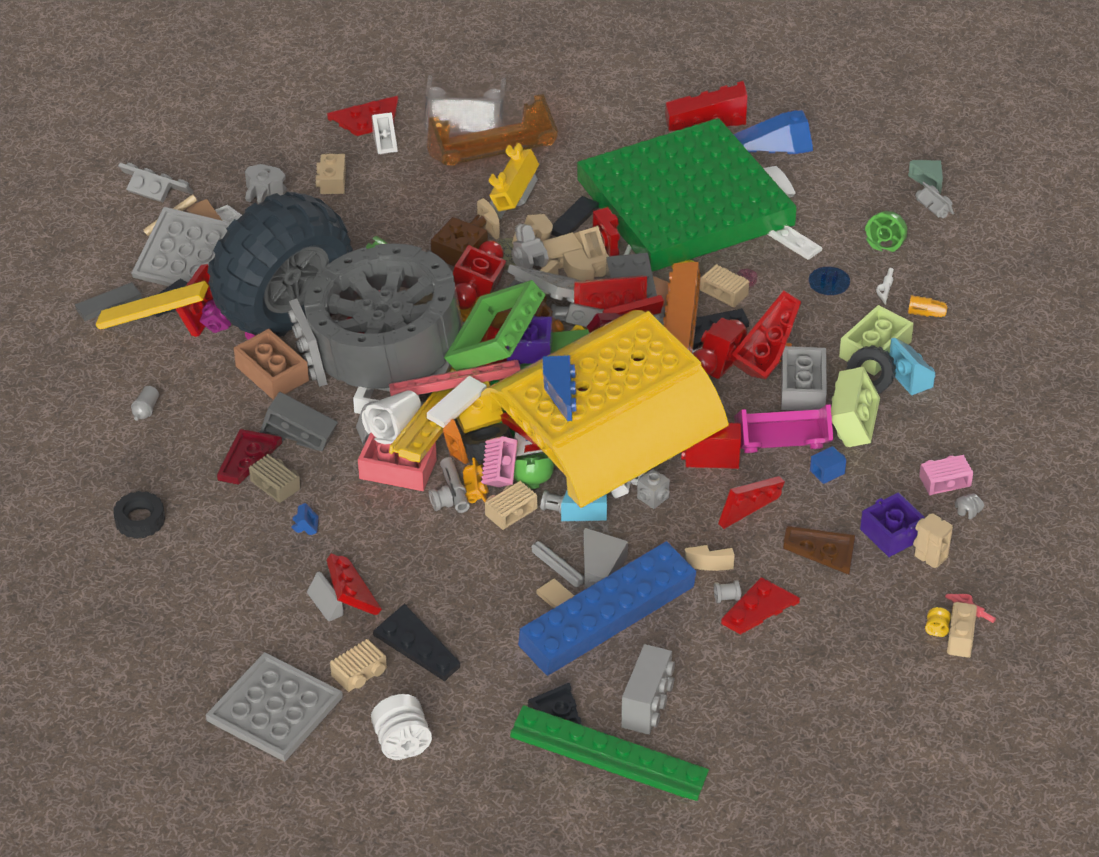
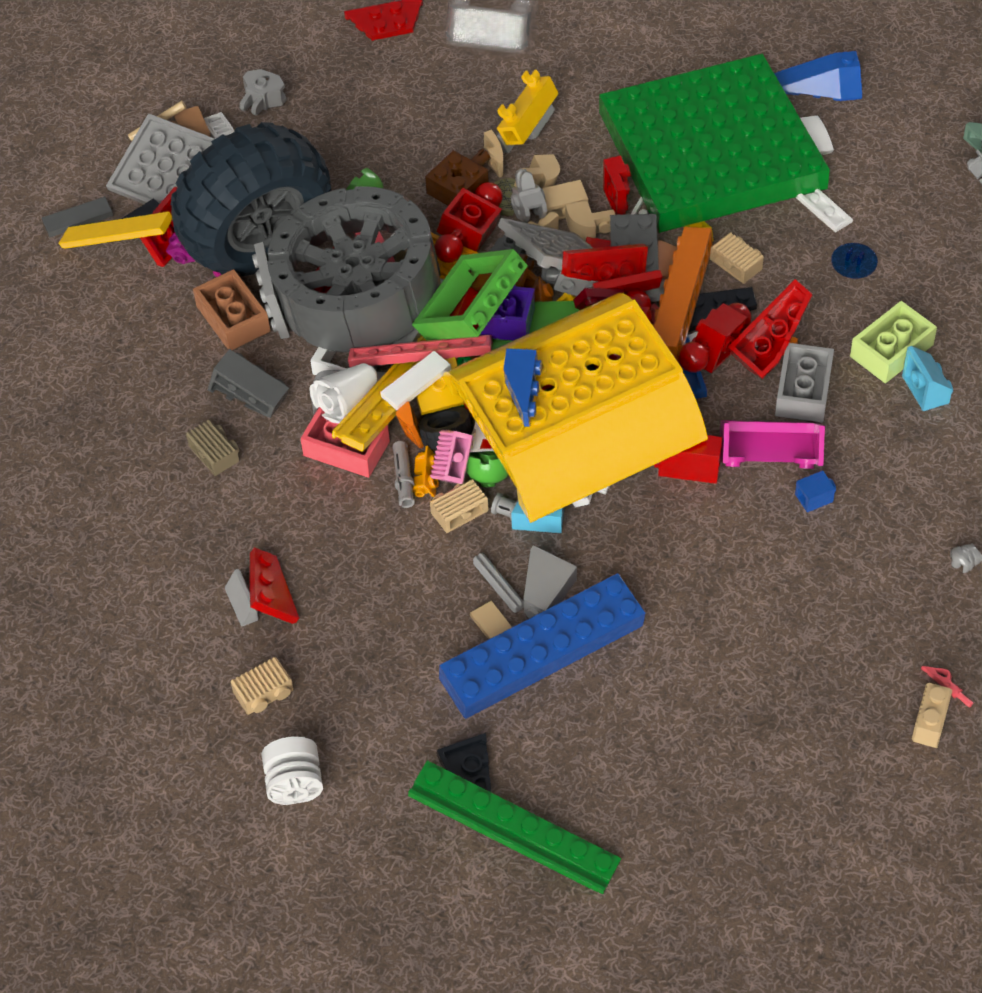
camera: 10 degrees right, 10 degrees up
(143, 527) = (59, 461): black tyre -> none
(144, 404) = (91, 345): light grey piece -> none
(151, 185) = (145, 83): light grey bracket -> none
(246, 451) = (186, 413): dark red wing -> none
(274, 706) = (164, 726): light grey plate -> none
(305, 520) = (237, 501): blue tile -> none
(332, 174) = (336, 85): tan brick -> none
(384, 133) = (399, 41): white slope -> none
(415, 641) = (327, 659): black wing -> none
(441, 497) = (385, 489): light grey wheel -> none
(535, 131) = (552, 57): clear orange windscreen -> none
(574, 216) = (587, 158): black tile -> none
(591, 242) = (598, 194): tan slope -> none
(647, 689) = (567, 754): light grey brick -> none
(653, 488) = (616, 502): light grey brick -> none
(702, 559) = (655, 594): tan slope -> none
(727, 104) = (771, 37): red wedge -> none
(727, 591) = (677, 637): light grey bush -> none
(749, 274) = (766, 248): clear pink tile -> none
(749, 498) = (721, 525): red wing -> none
(758, 604) = (709, 657): red wing -> none
(821, 546) = (792, 592): reddish brown wing -> none
(854, 407) = (854, 425): yellowish green brick -> none
(880, 356) = (893, 367): black tyre -> none
(886, 227) = (926, 202): bright green cylinder -> none
(888, 279) = (916, 273): white hand -> none
(891, 524) = (875, 575): dark purple brick -> none
(927, 307) = (957, 304): light orange hinge -> none
(933, 540) = (916, 600): tan brick -> none
(938, 622) = (906, 701): yellow wheel -> none
(946, 474) = (945, 516): bright pink brick -> none

